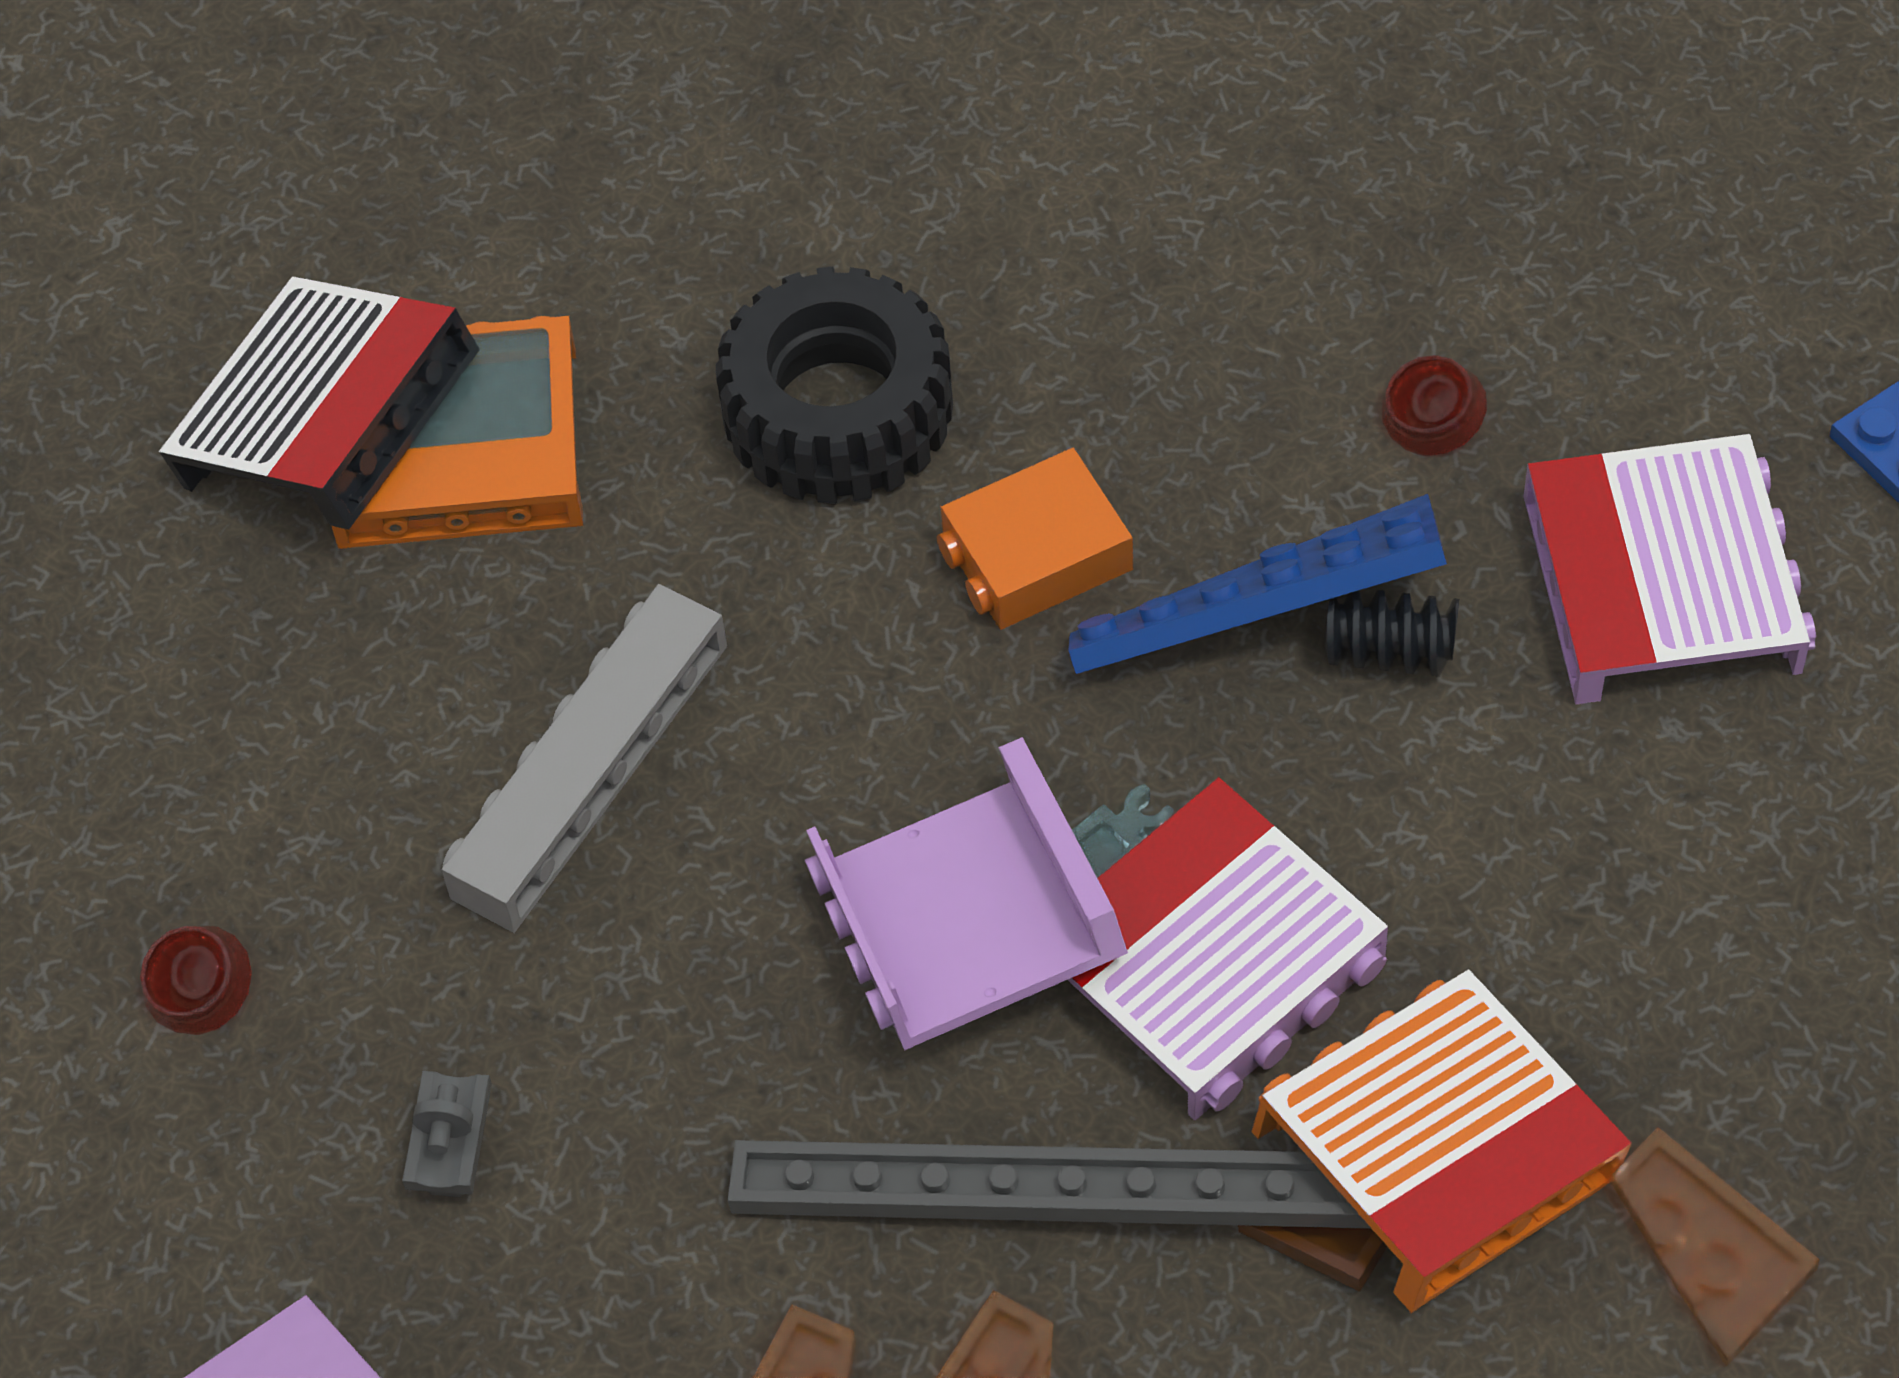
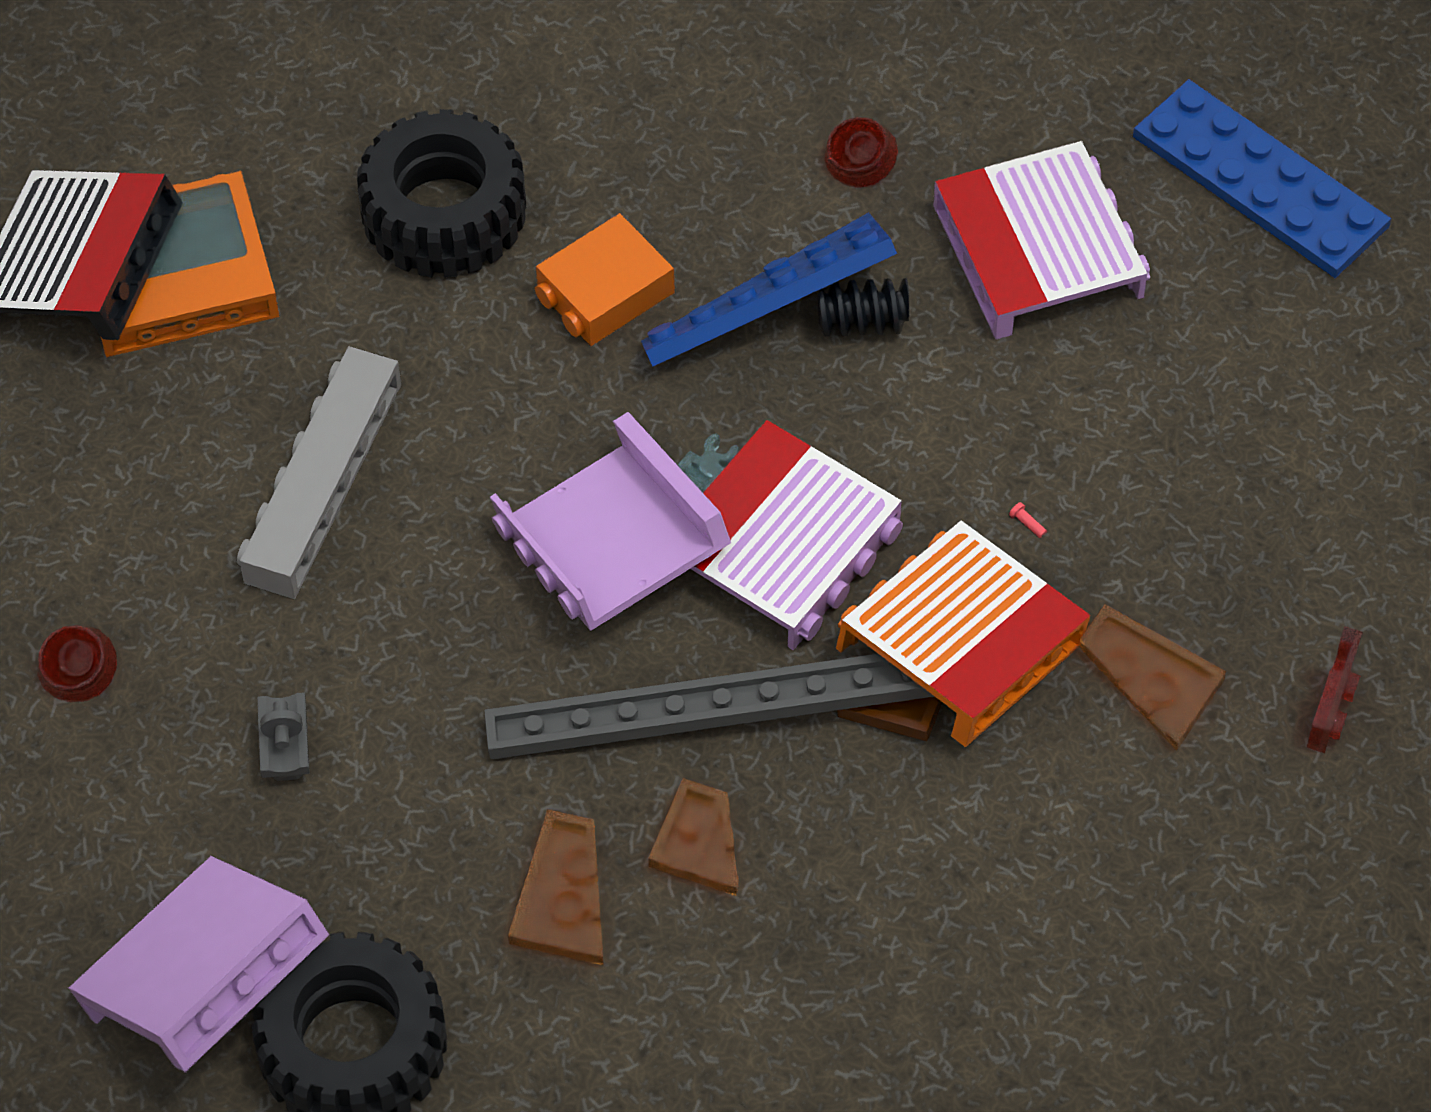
camera: 15 degrees left, 0 degrees up
(1562, 968) = (1023, 516): none -> coral piece

